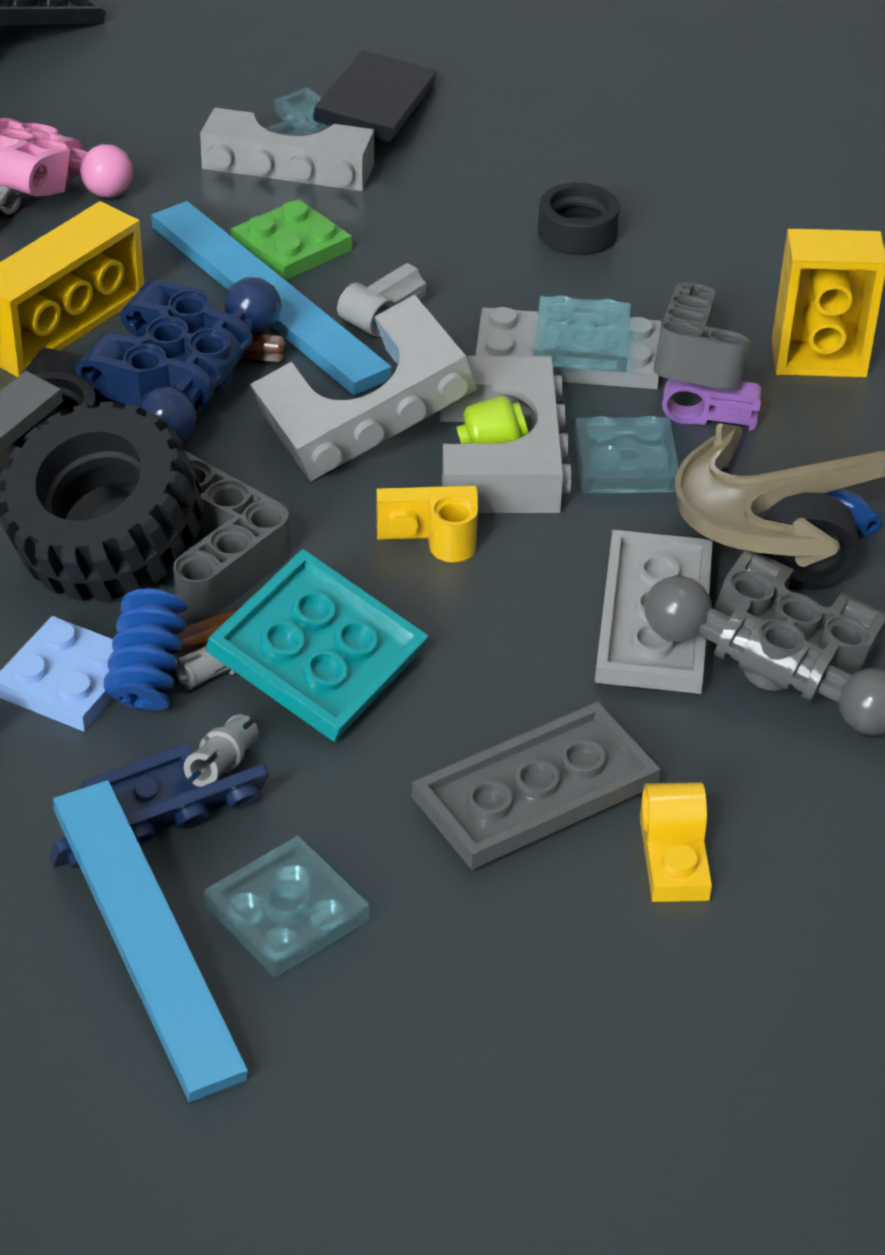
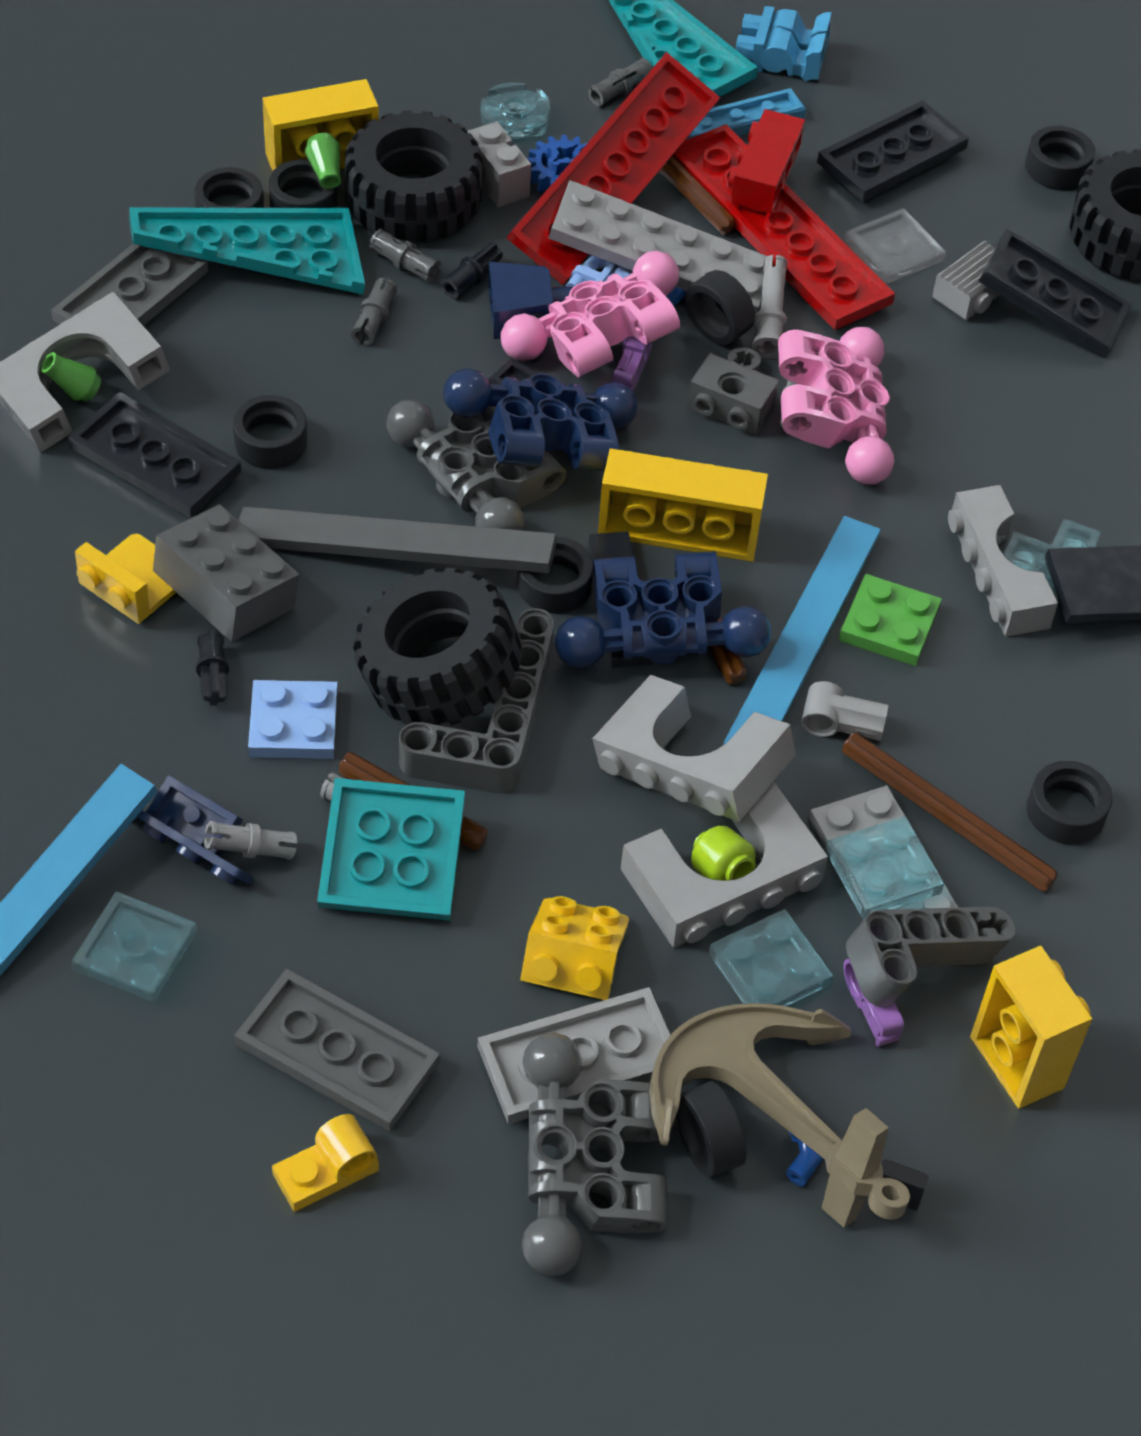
camera: 60 degrees right, 10 degrees up
(143, 649) = (312, 751): blue piece -> none
(438, 513) = (589, 861): yellow plate -> none
(534, 559) = (574, 947): none -> yellow bracket
(547, 284) = (950, 812): none -> reddish brown axle

